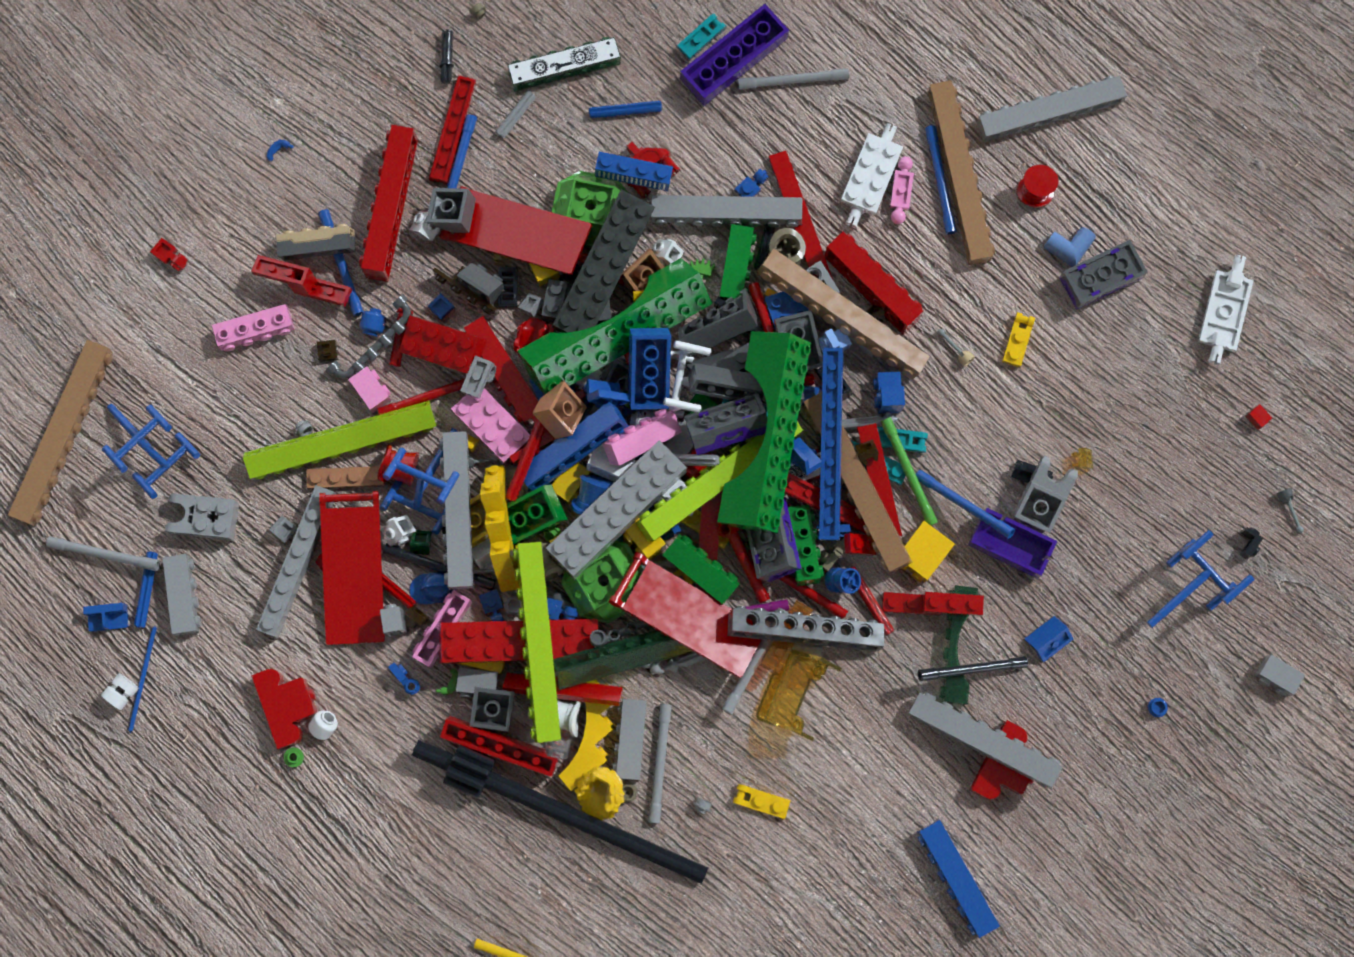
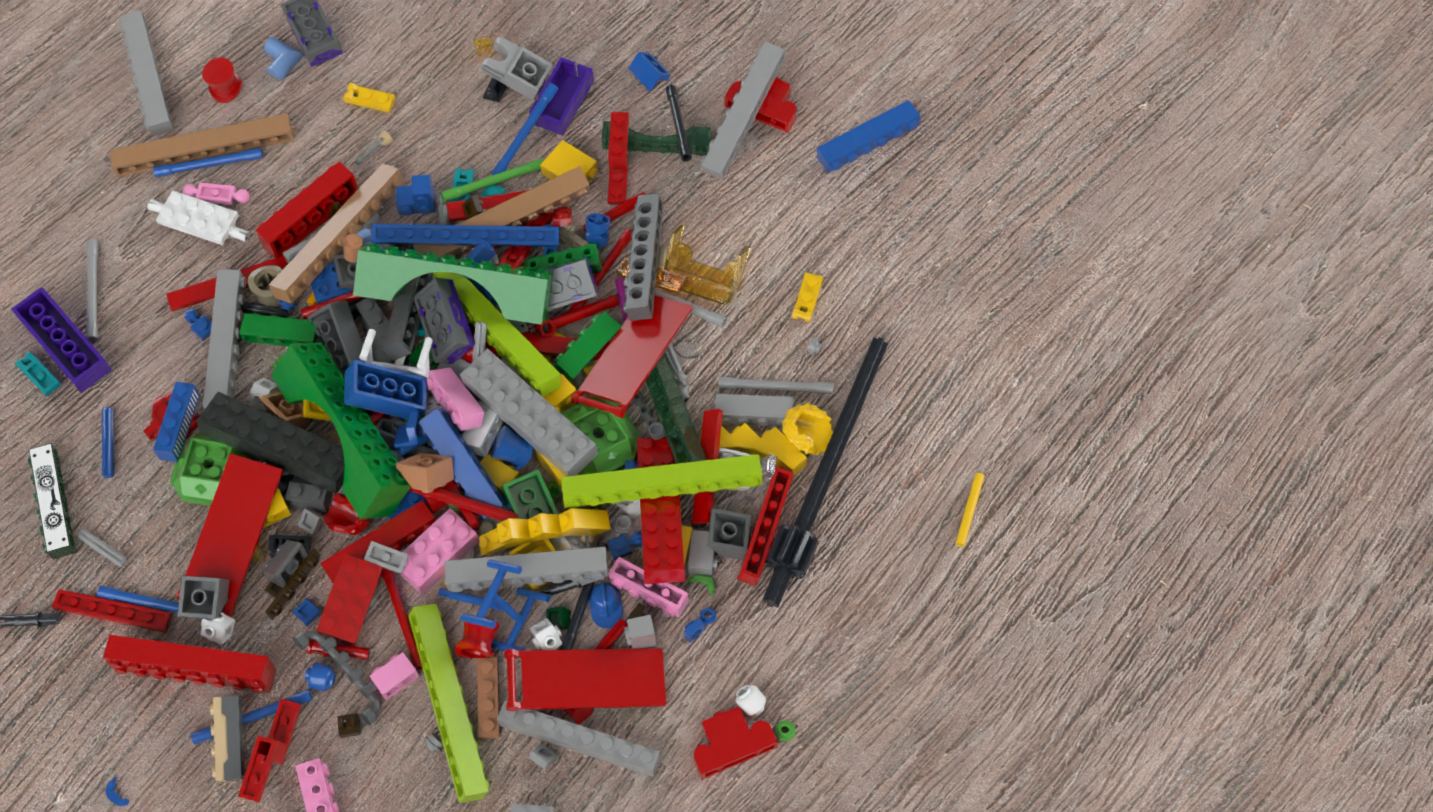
camera: 85 degrees left, 15 degrees down
(815, 329) = (352, 244): none -> nougat brick

